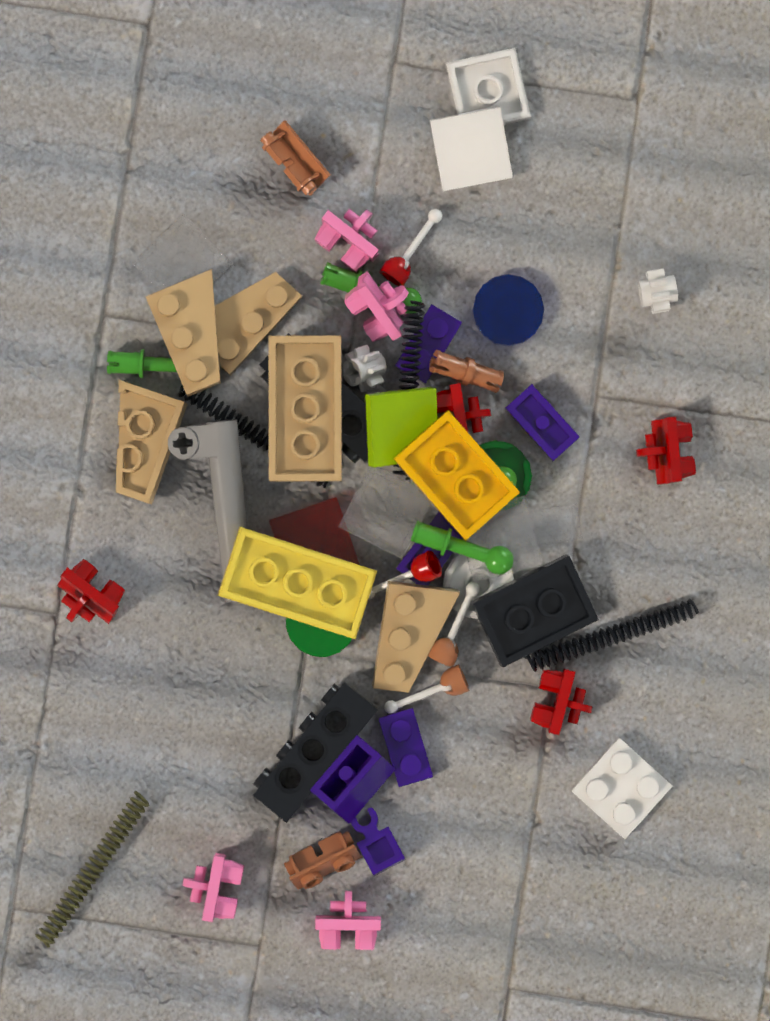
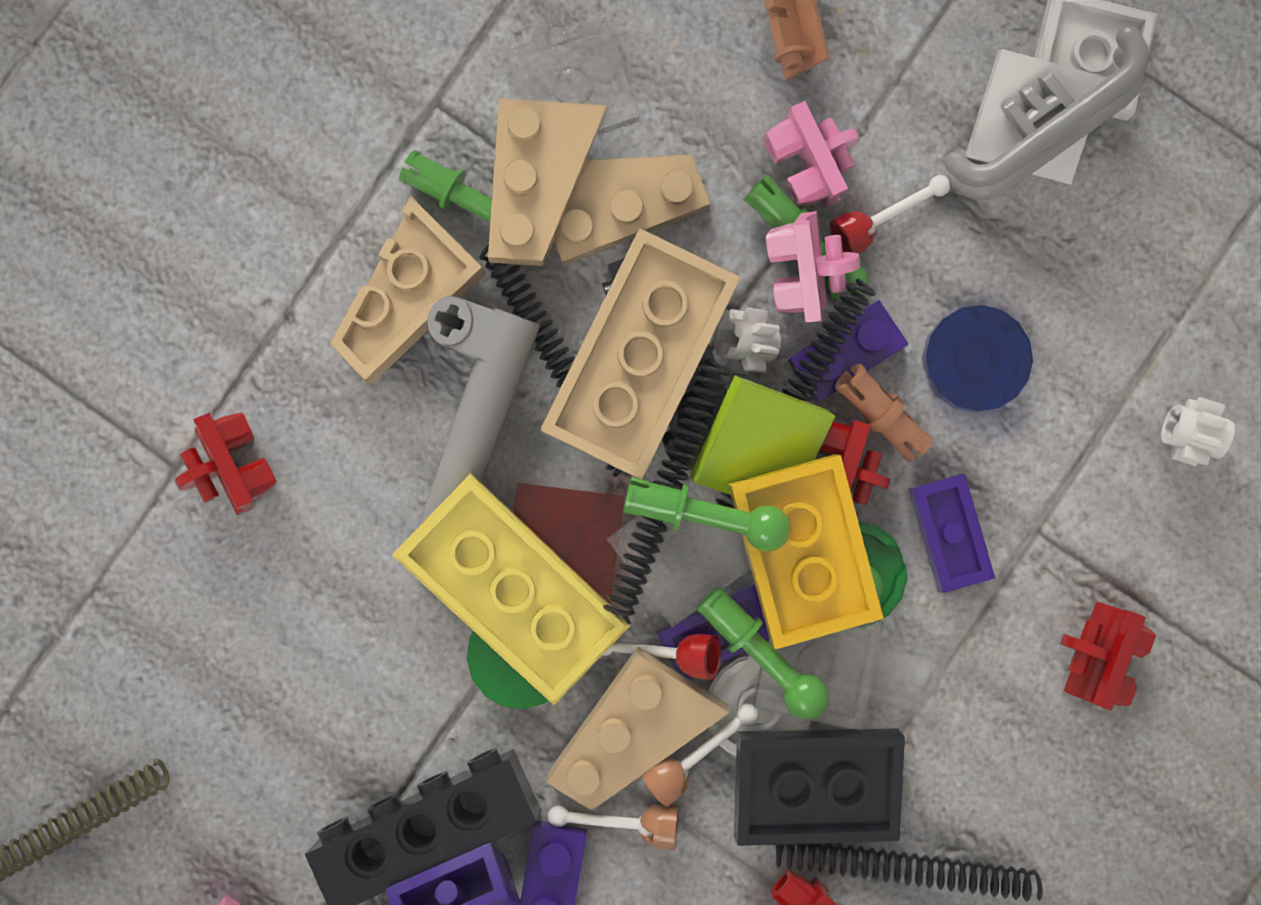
camera: 25 degrees right, 0 degrees up
(359, 478) = (672, 478): none -> black piece
(424, 473) = (764, 527): none -> bright green pin
(481, 152) = (1053, 122): none -> light grey piece

